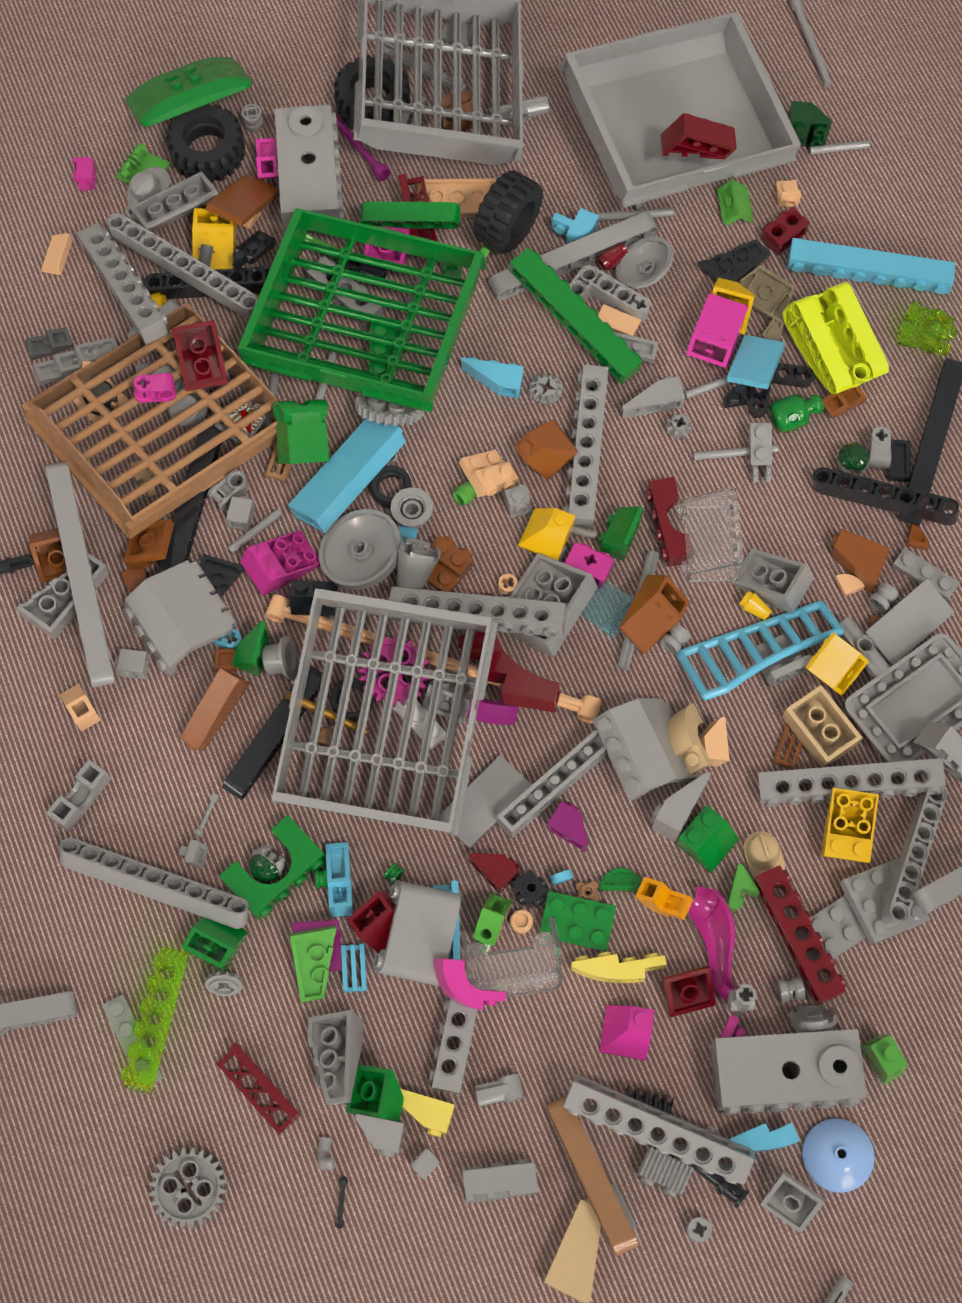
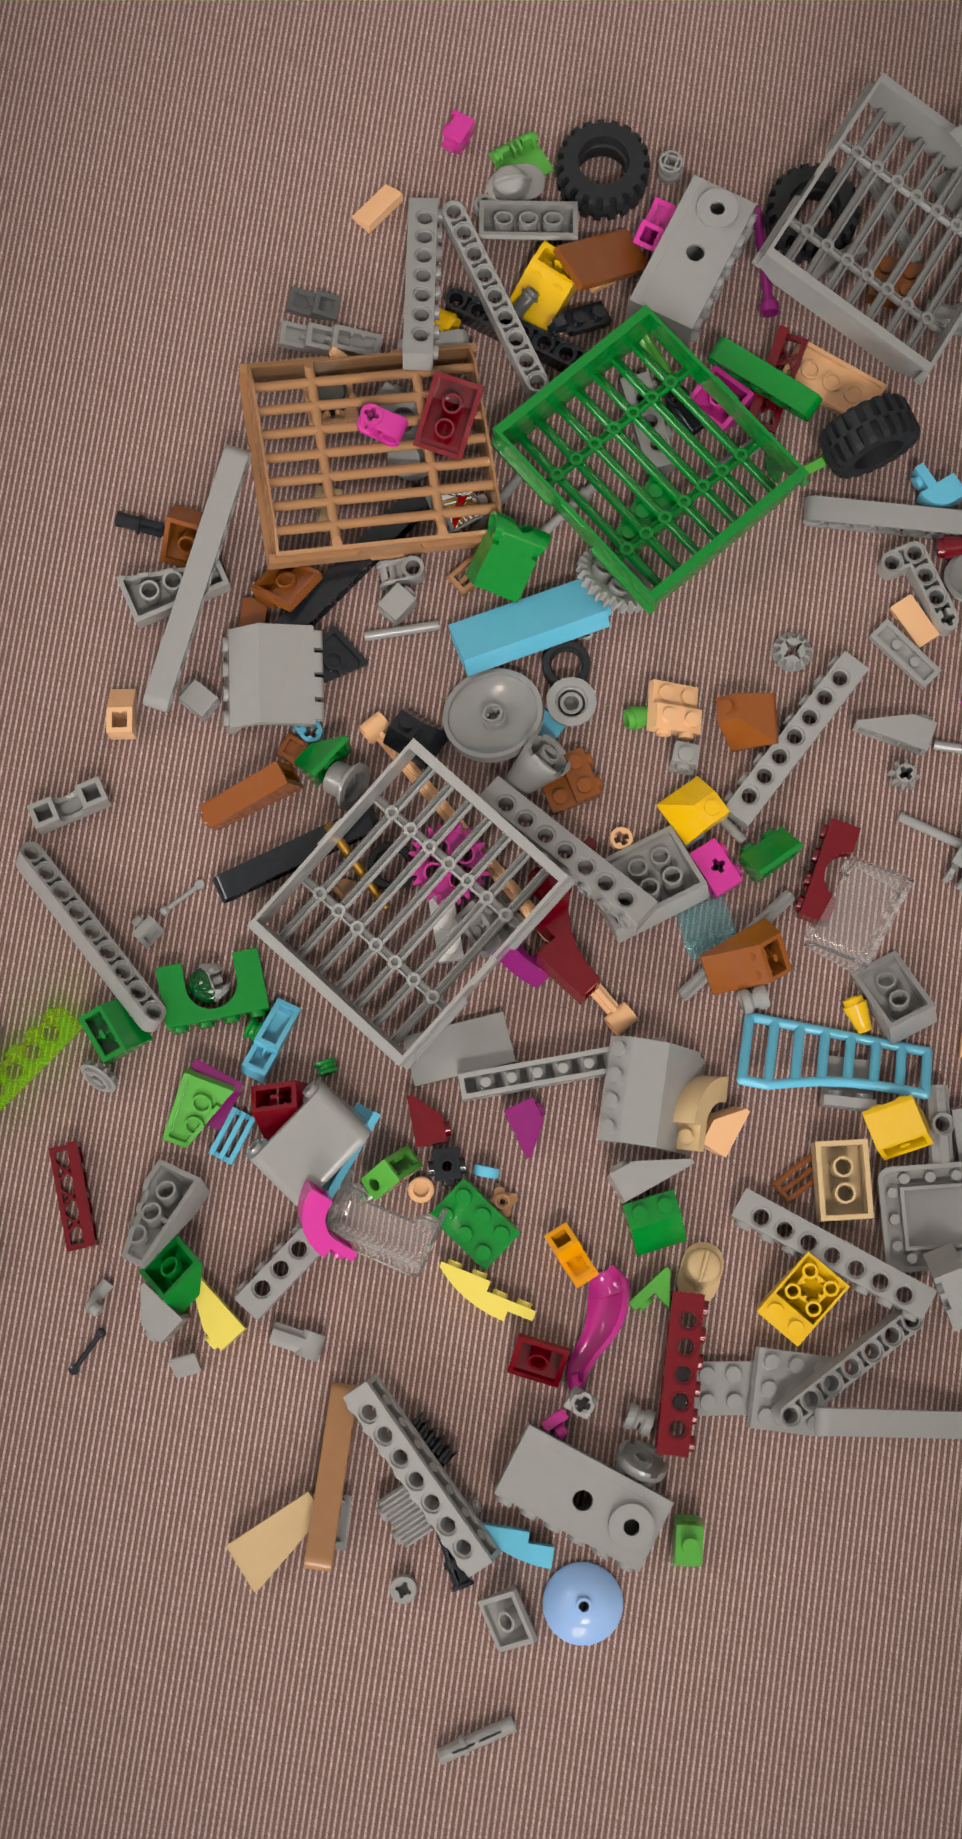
camera: 30 degrees right, 10 degrees up
(186, 89) = (618, 97): green wedge -> none
(279, 561) = (406, 679): dark pink slope -> none
(498, 377) = (750, 612): medium azure slope -> none
(500, 1181) = (243, 1426): light grey wedge -> none
(575, 315) = (870, 591): green brick -> none
(620, 880) = (543, 1209): green tile -> none
(627, 1031) = (454, 1360): dark pink slope -> none

